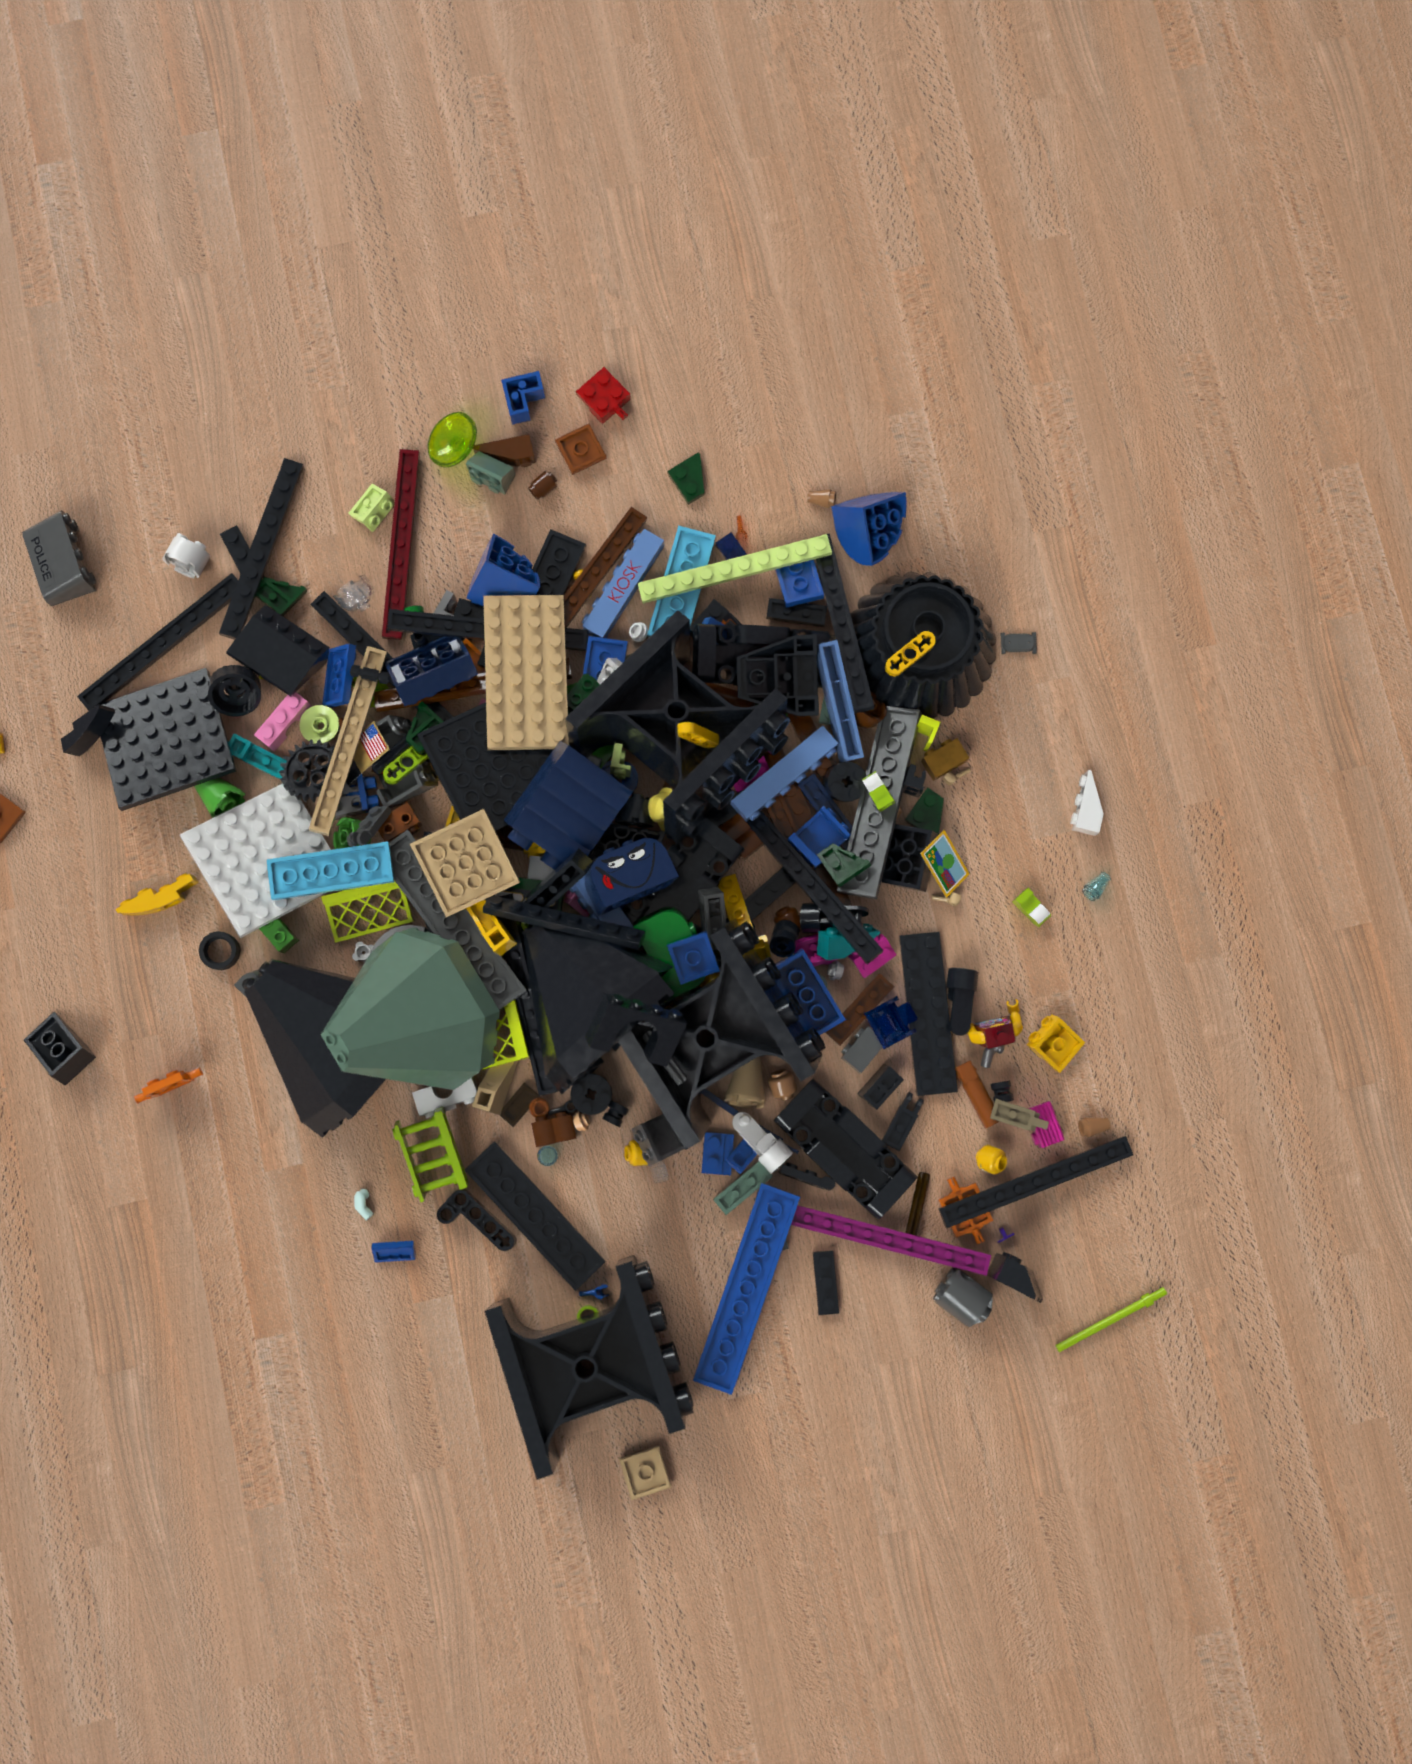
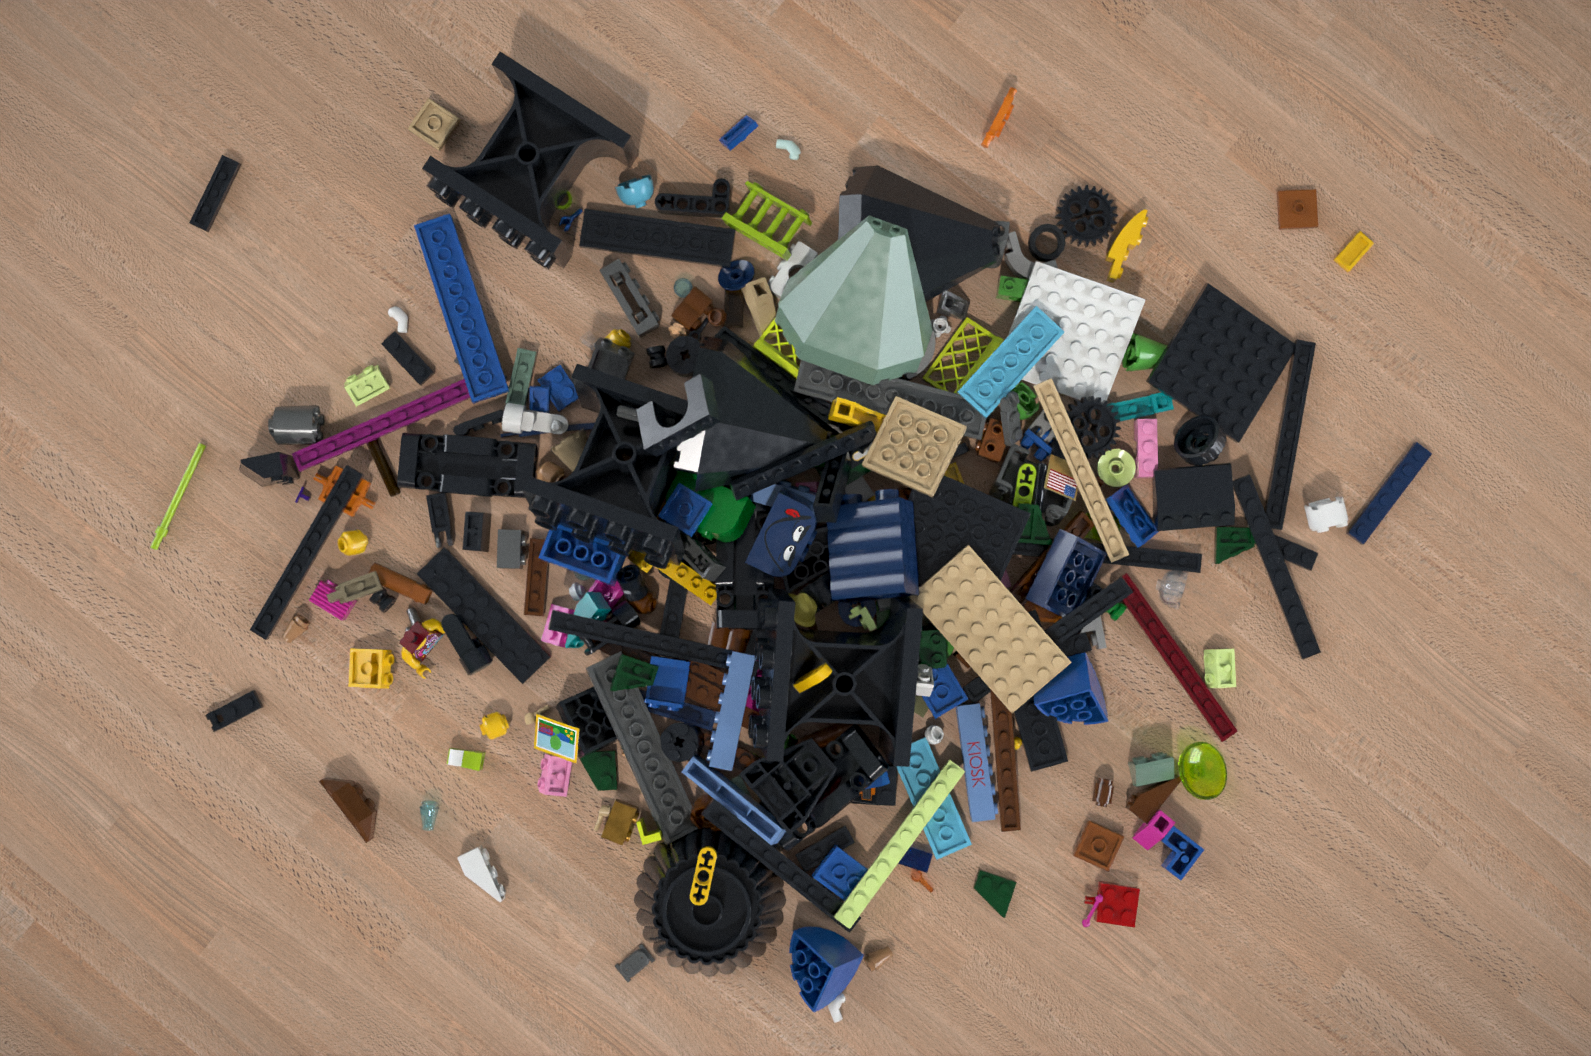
camera: 145 degrees right, 5 degrees up
(57, 559) = (1423, 433): dark grey windscreen -> none
(59, 1049) = (1101, 81): black slope -> none
(87, 730) = (1284, 322): black slope -> none
(130, 534) = (1389, 493): none -> dark blue plate
(161, 962) = (1091, 231): none -> black gear
(256, 949) = (1017, 262): none -> light grey arch
(339, 960) = (953, 306): none -> flat silver slope
(370, 674) = (1107, 533): black axle -> none
(488, 1133) = (737, 275): none -> dark blue dish
(520, 1270) = (636, 191): none -> medium azure cylinder
(526, 424) = (1154, 830): none -> dark pink slope
(593, 1216) = (614, 271): none -> dark grey brick
(638, 400) = (1086, 922): none -> dark pink hinge
(804, 1323) = (400, 316): none -> white arm
(878, 791) = (648, 752): lime leg -> none
(878, 1287) = (366, 385): none -> yellowish green bracket
(882, 1565) = (215, 193): none -> black plate
(886, 487) = (834, 1007): none -> white arm
(891, 1022) = (504, 584): clear blue panel -> none
(912, 784) = (627, 782): black hinge -> none
(970, 837) = (554, 776): none -> bright pink bracket
(988, 915) = (494, 725): none -> yellow head
(1153, 943) = (353, 804): none -> reddish brown wedge
(1195, 1098) = (234, 710): none -> black plate

